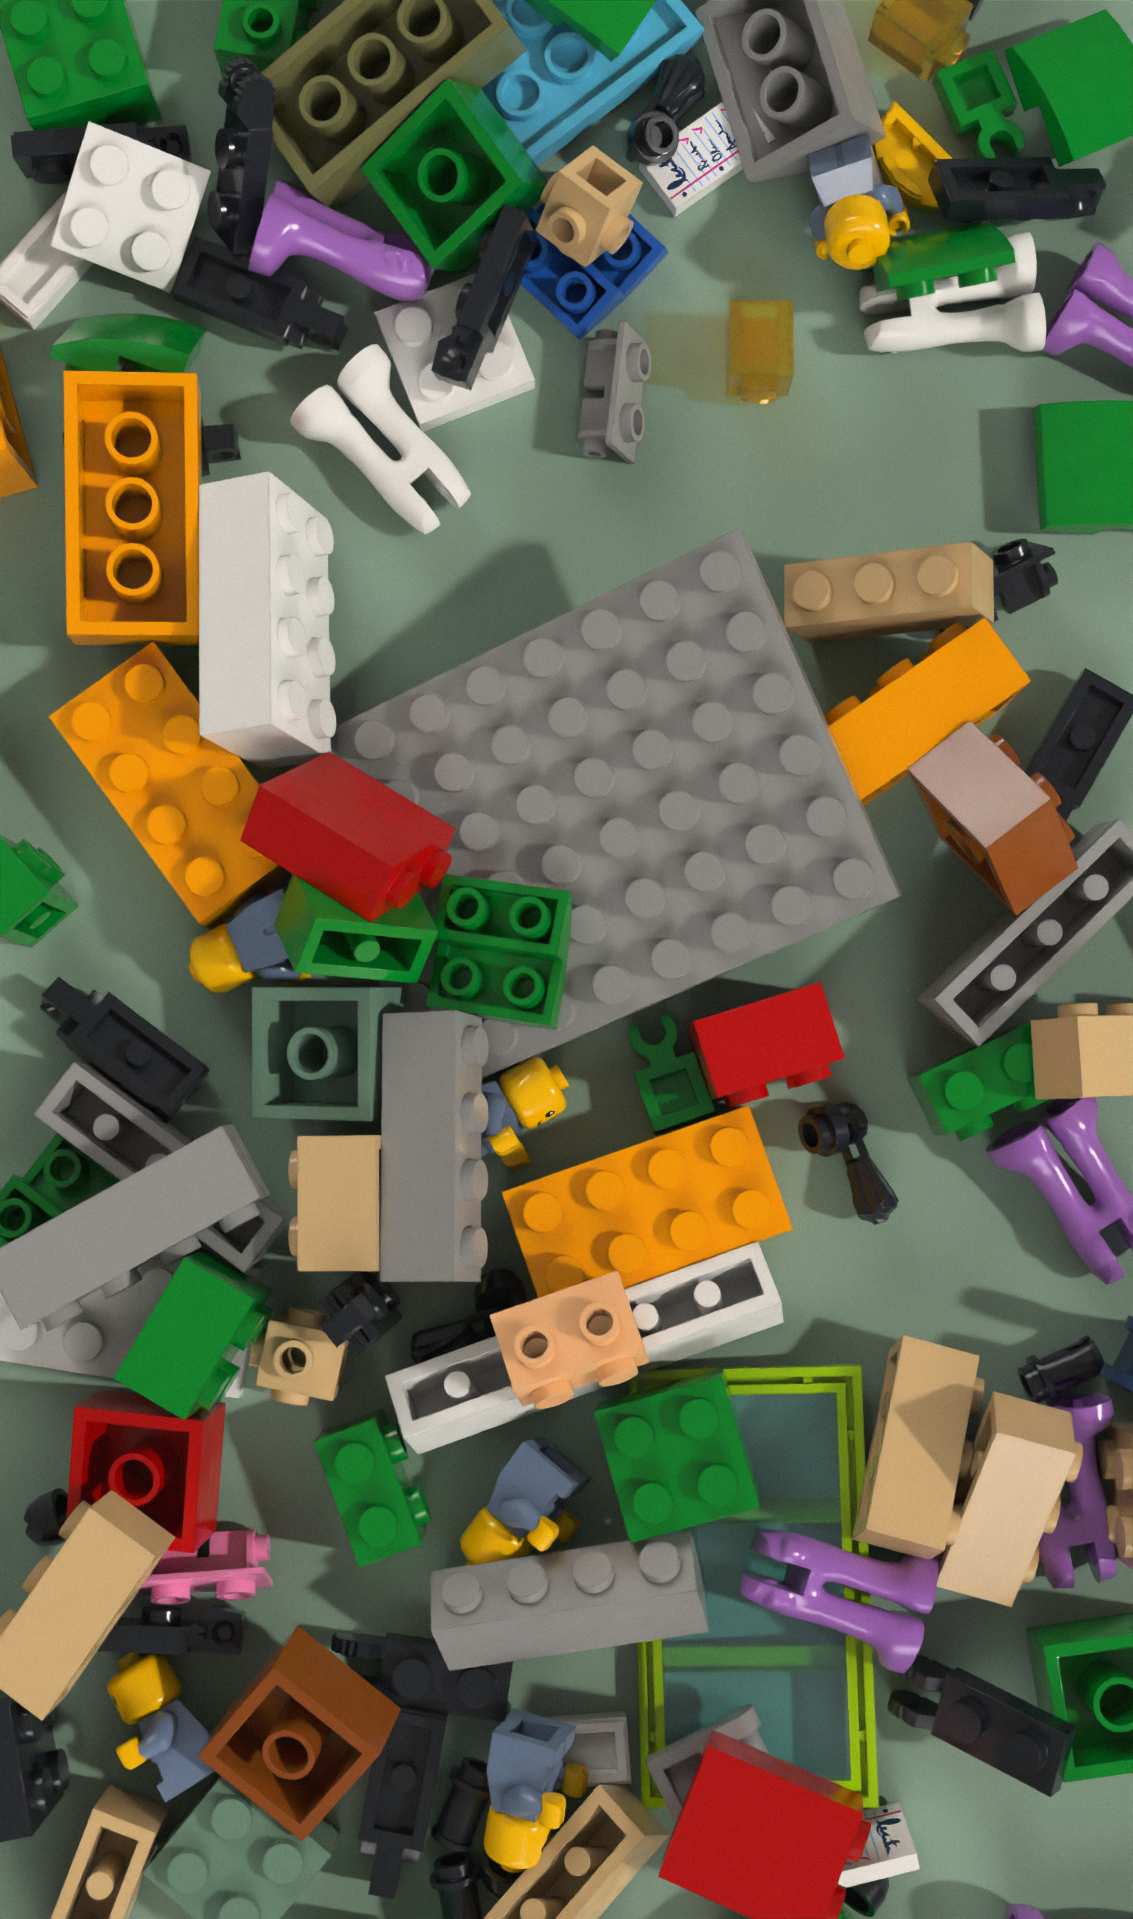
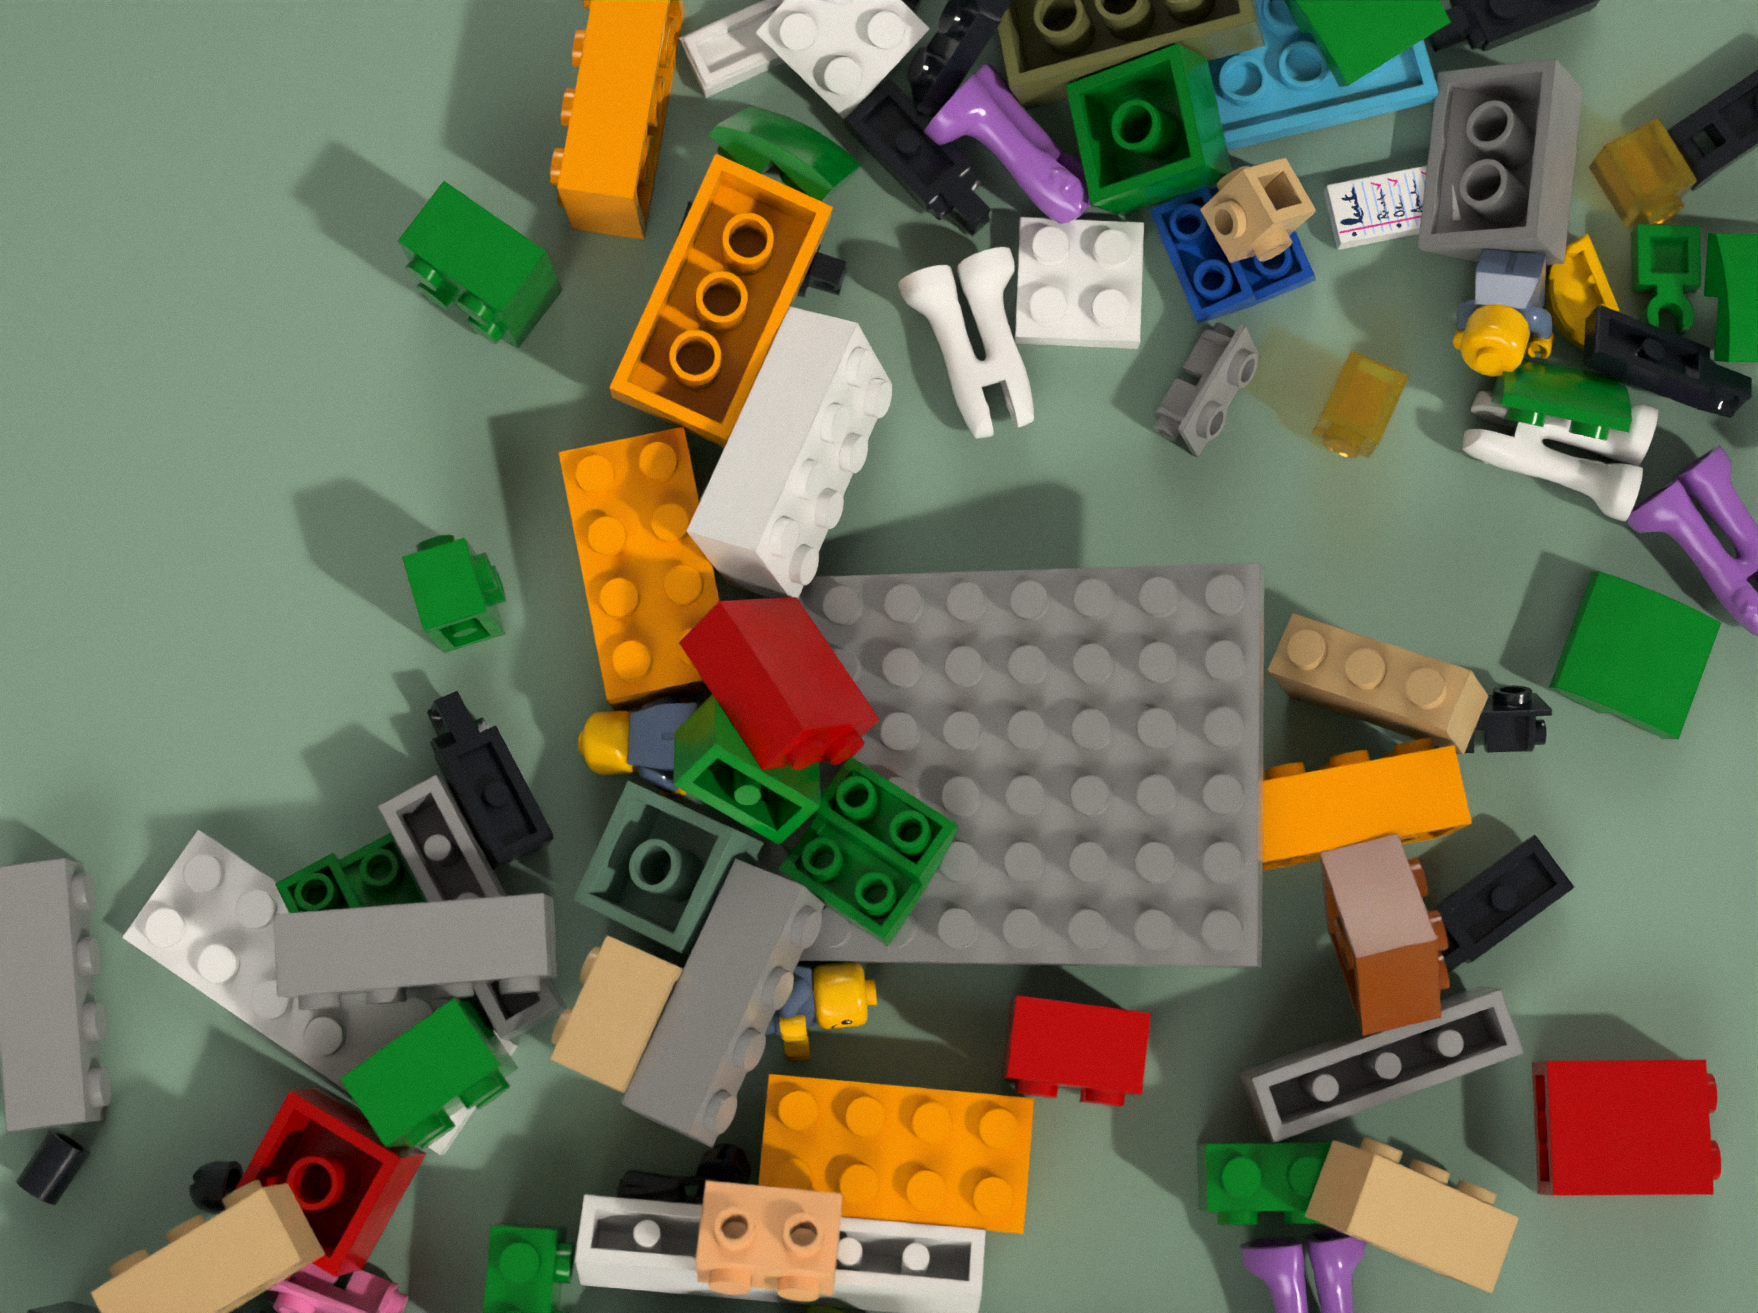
camera: 25 degrees right, 5 degrees down
(288, 1379) = (539, 1146): tan brick -> none
(360, 1311) = (590, 1123): black hinge -> none
(487, 301) = (1126, 254): black hinge -> none
(654, 133) = (1349, 170): black piece -> none
(671, 1085) = (972, 1049): green plate -> none
(829, 1133) = (1099, 1162): black piece -> none

